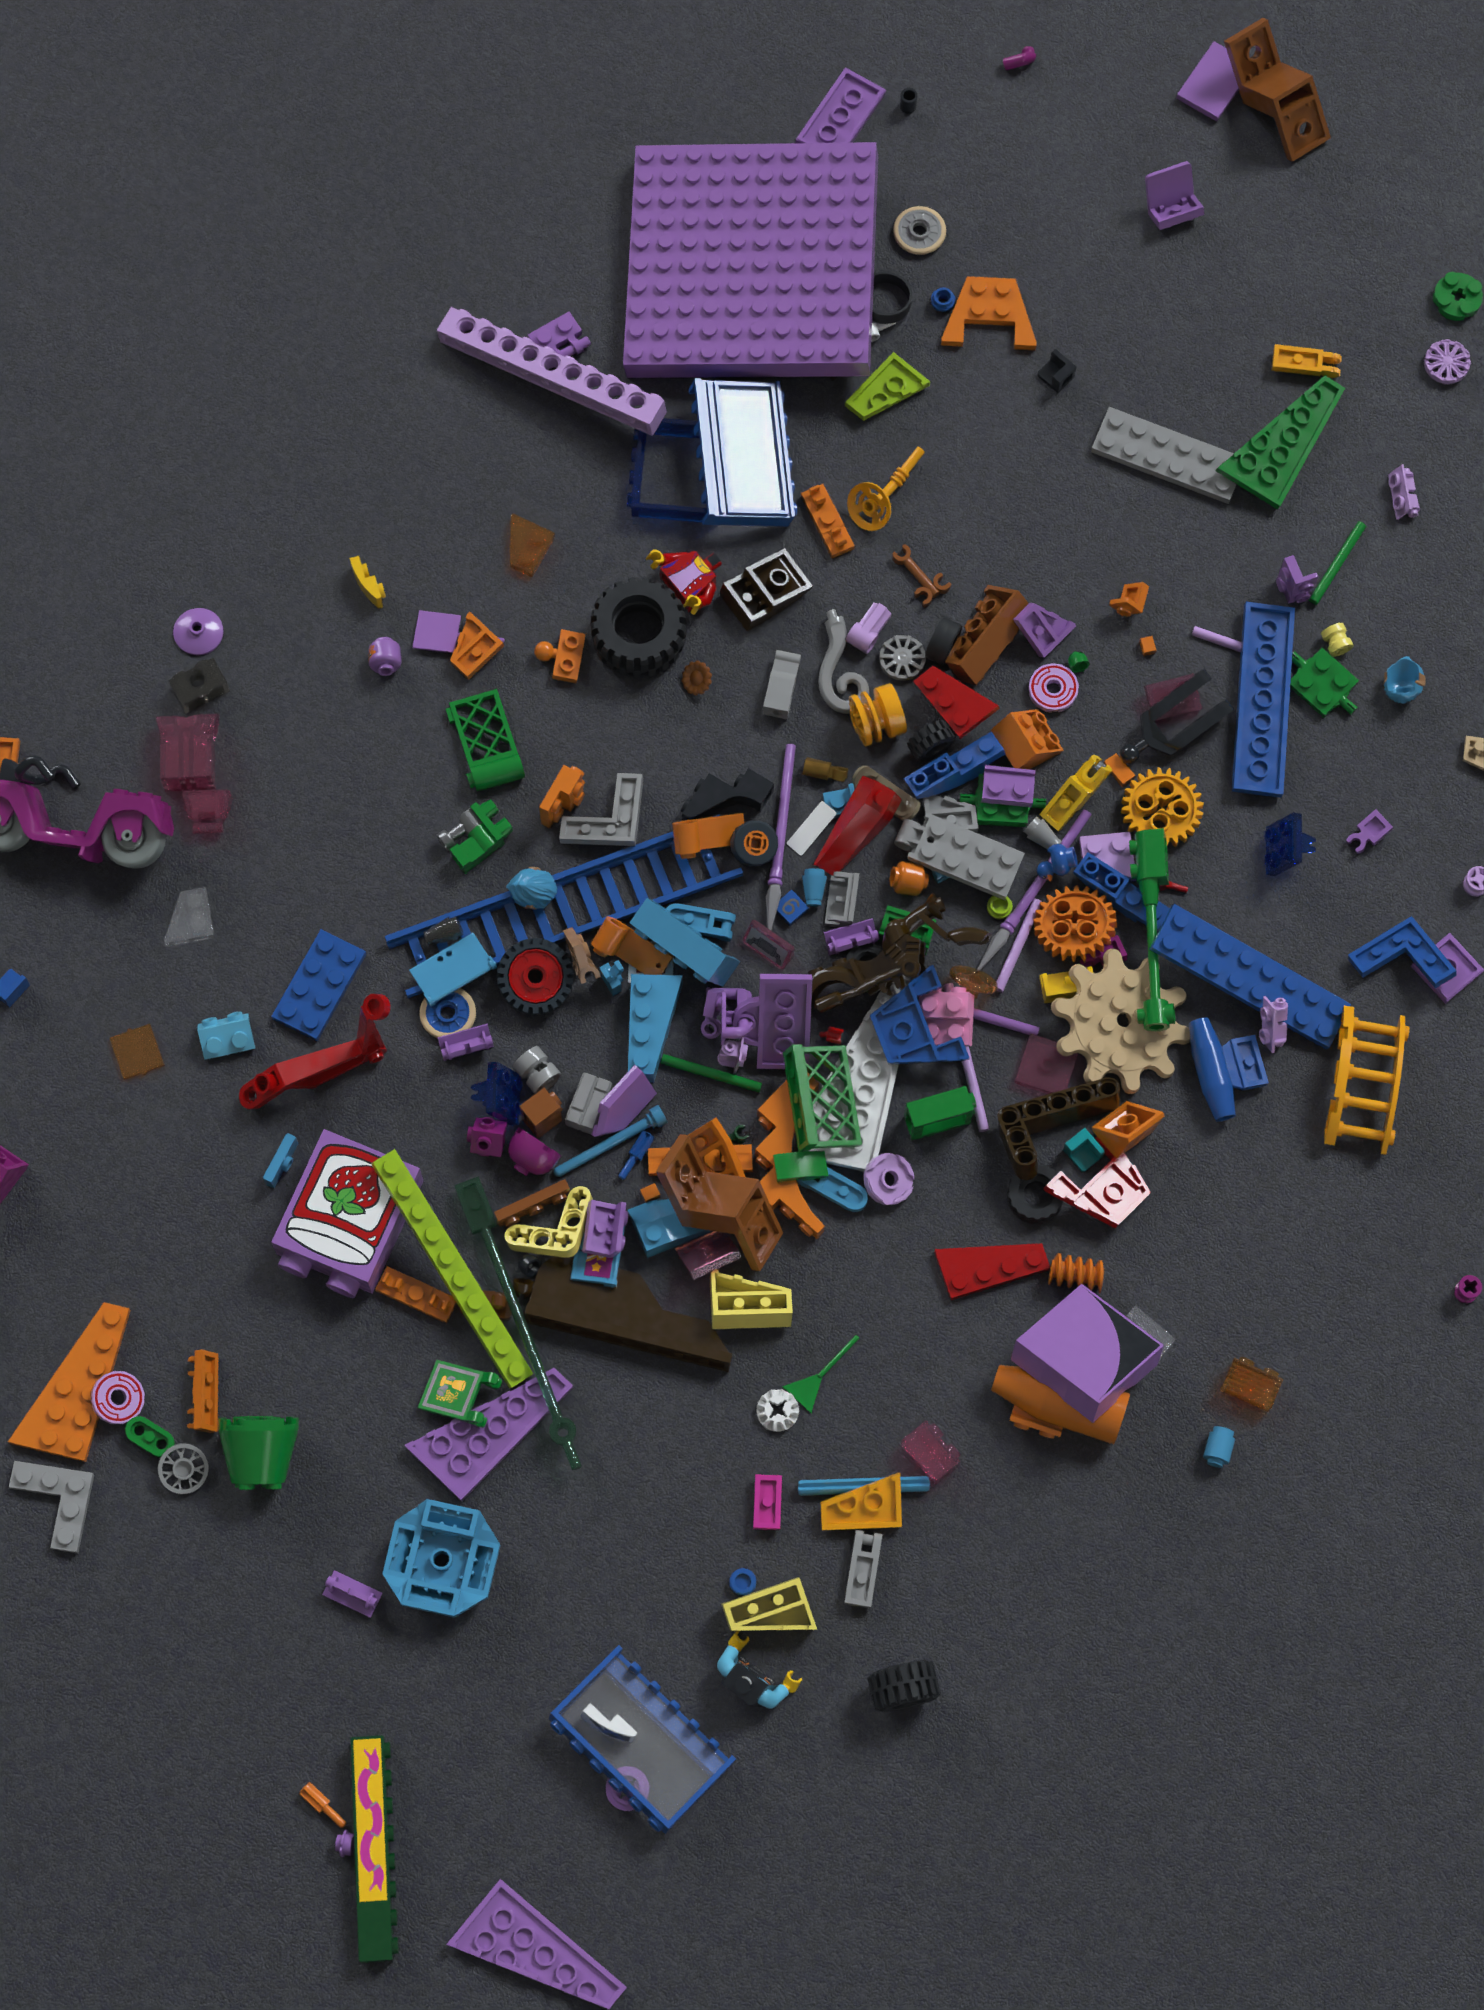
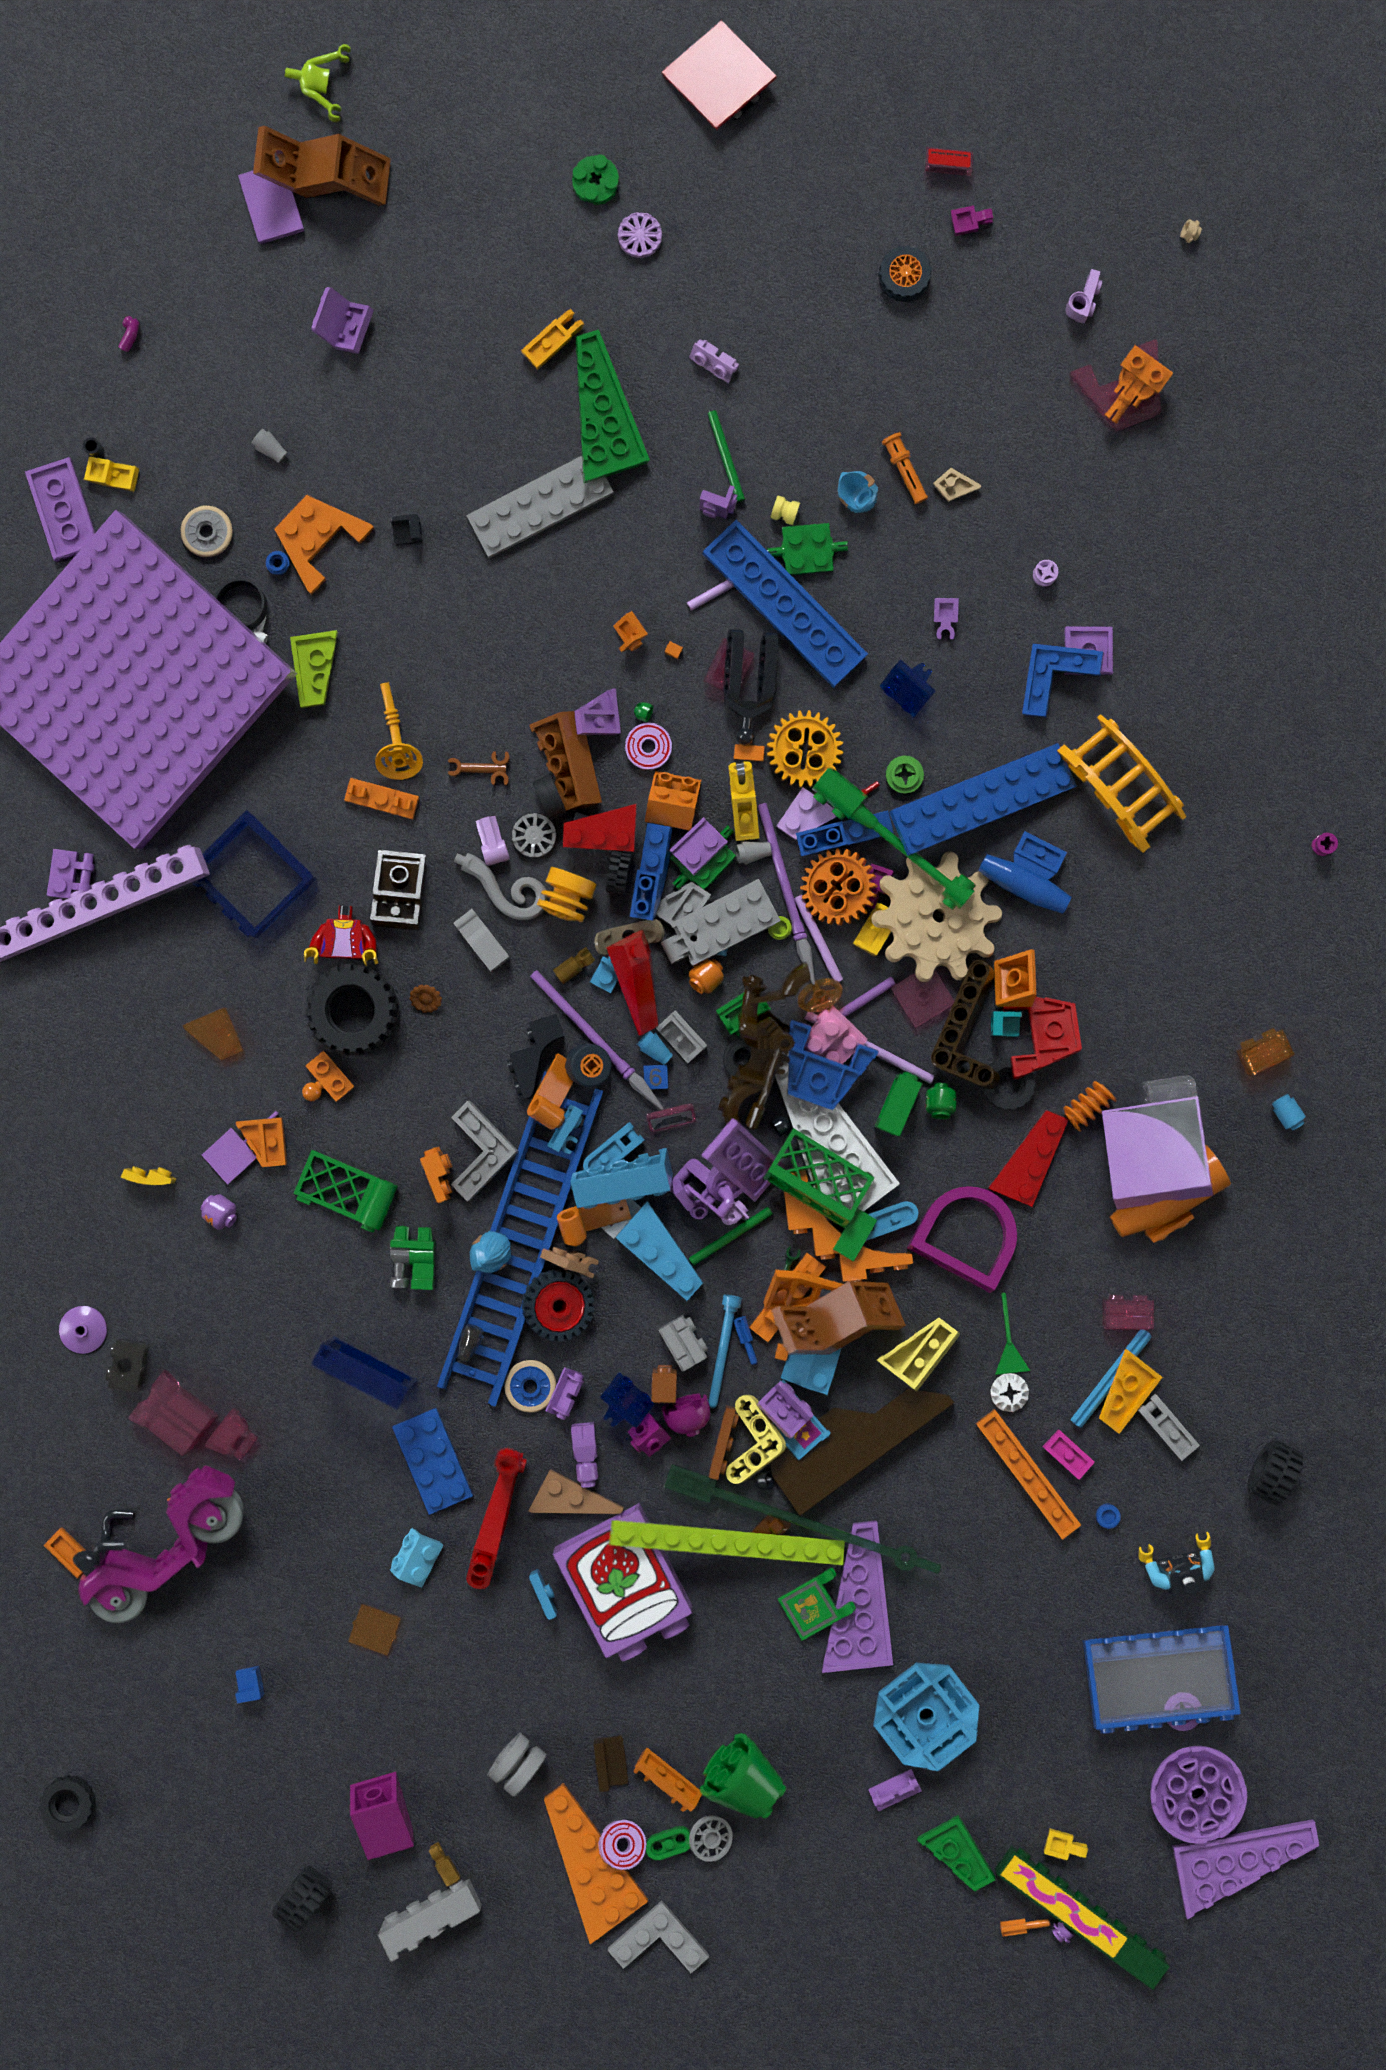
camera: 50 degrees left, 15 degrees up
(117, 1249) = (514, 1762): none -> light grey wheel
(180, 1332) = (610, 1762): none -> dark brown panel
(190, 918) = (305, 1512): clear wing -> none
(344, 1689) = (958, 1850): none -> green wing
(350, 861) = (364, 1372): none -> clear blue window
(378, 1113) = (564, 1495): none -> medium nougat wing
(416, 1294) = (718, 1576): orange plate -> none
(421, 1778) = (1060, 1845): none -> yellow plate
(430, 1098) = (585, 1452): none -> medium lavender piece
(453, 970) = (504, 1359): dark azure door -> none
(522, 1286) = (776, 1497): dark brown hinge -> none
(535, 1068) = (619, 1360): light grey wheel -> none
(558, 1830) = (1202, 1817): none -> medium lavender brick
(612, 976) = (603, 1250): dark azure plate -> none
(616, 1728) = (1140, 1691): white slope -> none
(623, 1102) = (705, 1321): medium lavender tile -> none
(696, 865) = (561, 1135): none -> dark azure plate
(707, 1253) = (863, 1355): clear pink plate -> none
(721, 1482) = (1028, 1474): none -> orange plate
(743, 453) = (279, 817): window -> none
(772, 1608) = (1145, 1516): light yellow wedge -> none
(811, 828) = (609, 1012): white sticker -> none
(832, 1035) = (778, 1130): red hand -> none
(850, 936) = (712, 1062): medium lavender hinge -> none
(854, 1311) = (985, 1282): none -> magenta window
(875, 1182) = (904, 1187): lavender tile -> none
(899, 128) = (111, 474): none -> yellow slope
(972, 1149) = (940, 1101): none -> green head
(1027, 221) = (268, 445): none -> light grey cone
(1062, 861) = (787, 858): blue animal -> none
(1212, 893) = (911, 766): none -> bright green gear
(1272, 1032) = (1030, 812): lavender hinge -> none
(1339, 39) = (315, 79): none -> lime piece
(1461, 695) = (897, 458): none -> orange pin

